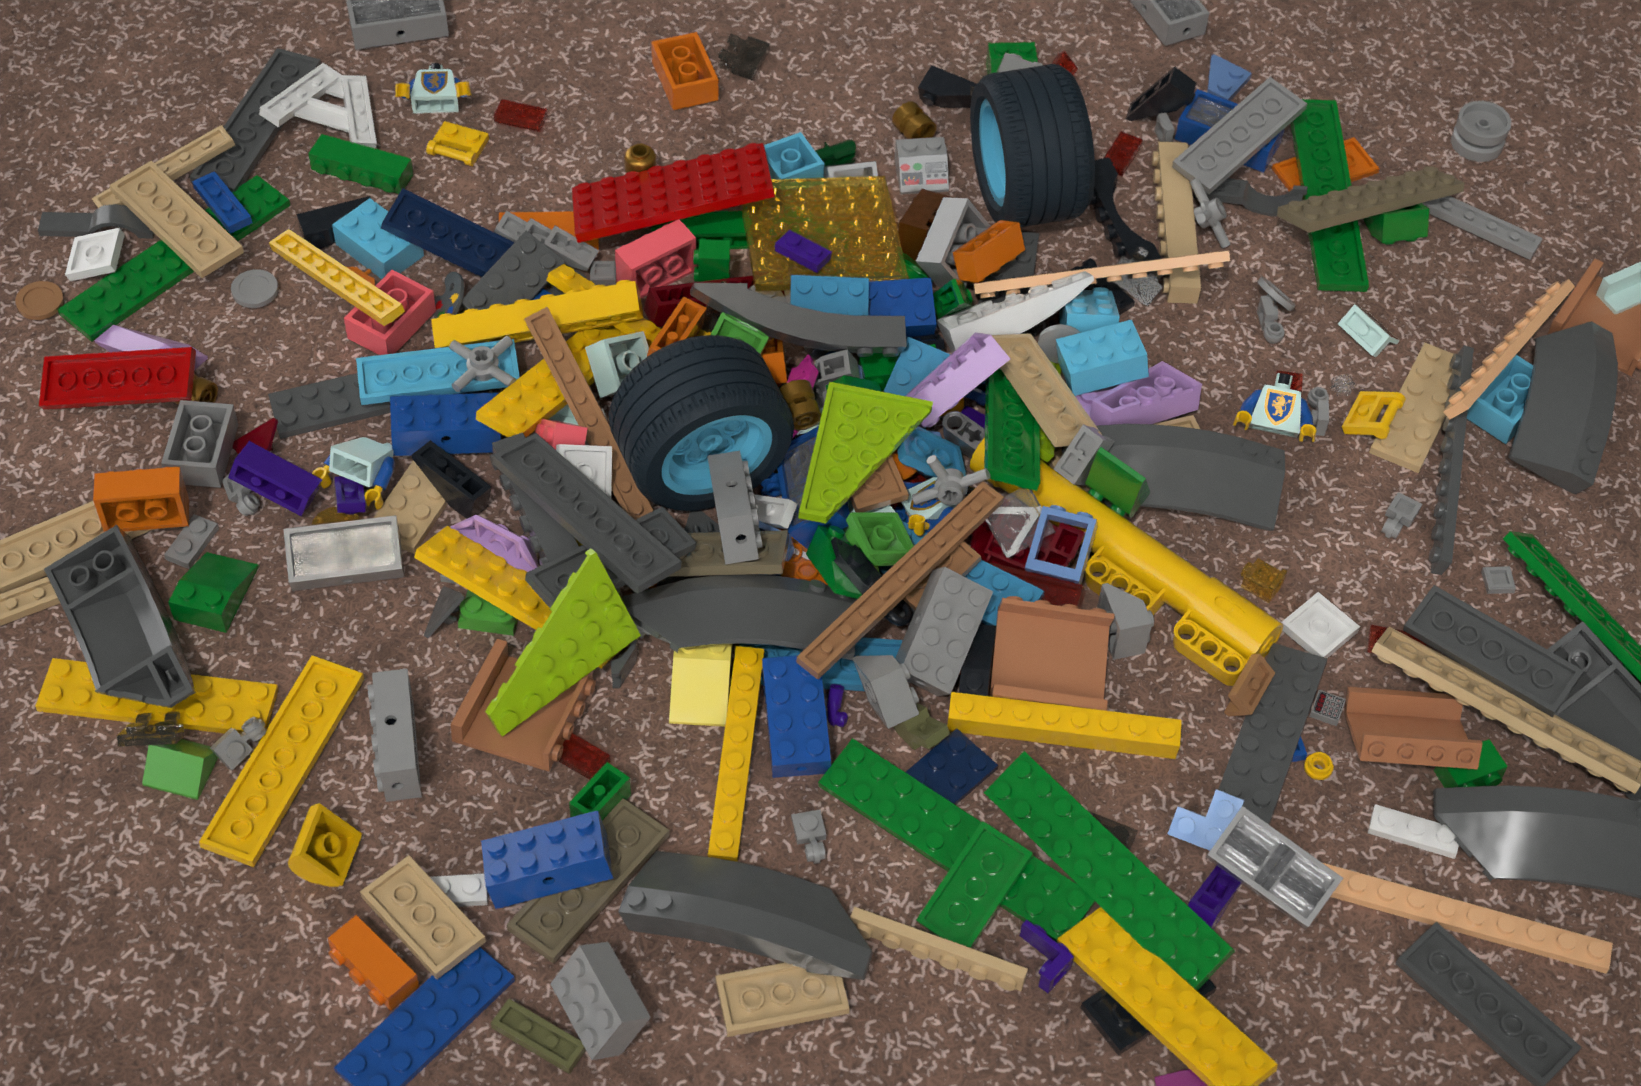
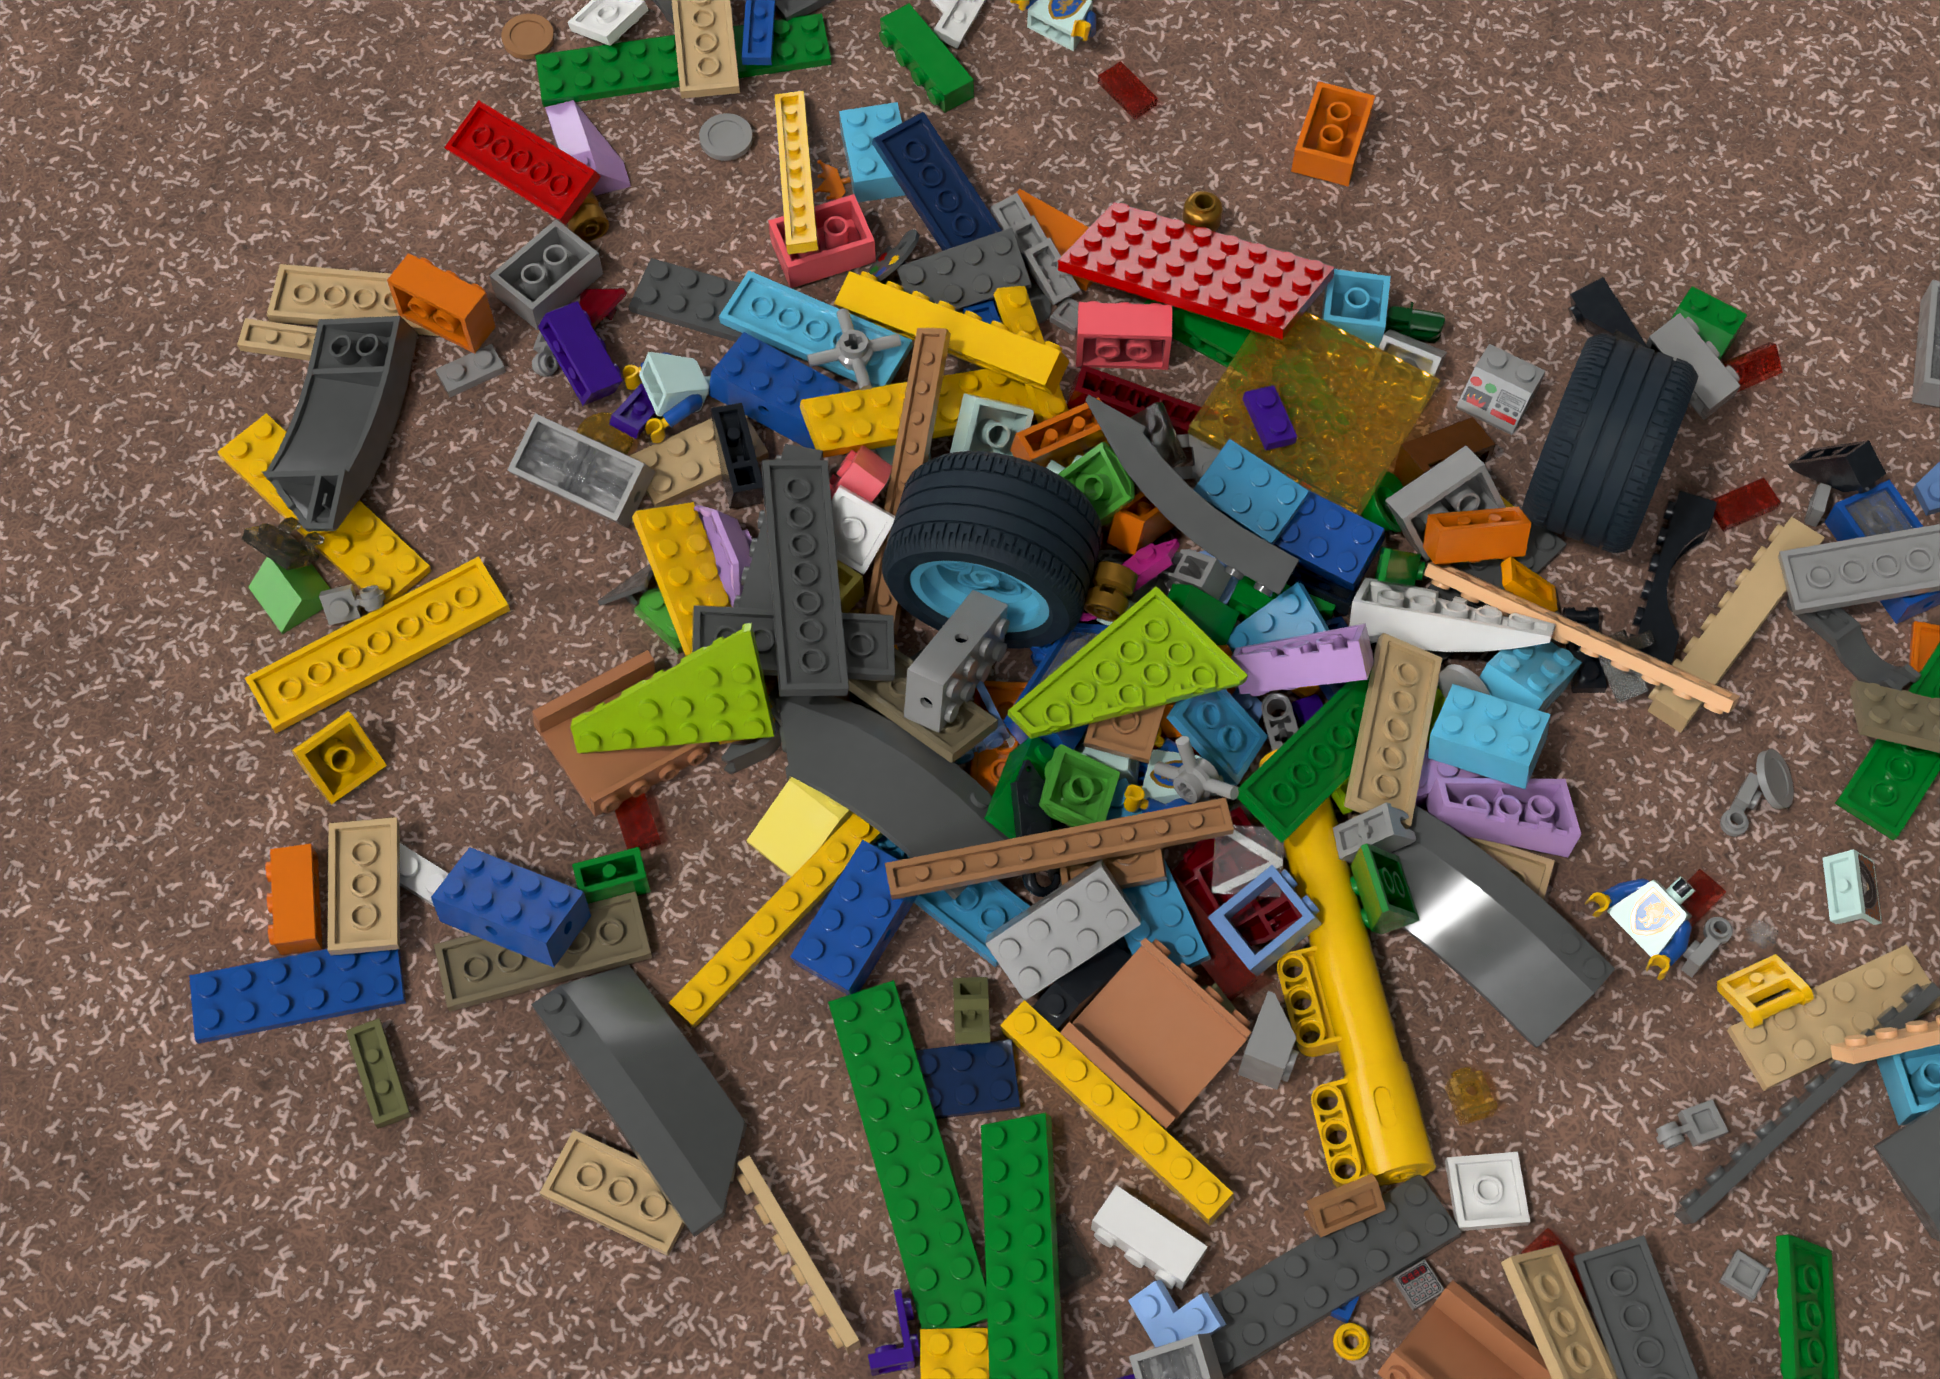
camera: 40 degrees right, 10 degrees up
(212, 591) = (448, 432): green slope -> none
(317, 223) = (831, 98): black slope -> none
(394, 735) = (481, 688): light grey brick -> none
(459, 138) = (1047, 81): yellow plate -> none
(600, 1000) = (444, 1080): light grey brick -> none
(712, 260) = (1178, 372): green brick -> none
(749, 58) = (1419, 156): clear smoke plate -> none
(775, 511) = (1005, 684): white plate -> none
(809, 829) = (784, 1043): light grey plate -> none
(834, 703) = (906, 941): dark purple arm -> none
(887, 688) = (959, 954): light grey slope -> none
(913, 121) = (1533, 334): pearl gold wheel -> none
(975, 886) = (880, 1219): green plate -> none
(1036, 266) = (1528, 584): none -> light orange plate
(1148, 787) = (1148, 1238): none -> white brick
(1210, 213) = (1777, 637): light grey bar -> none

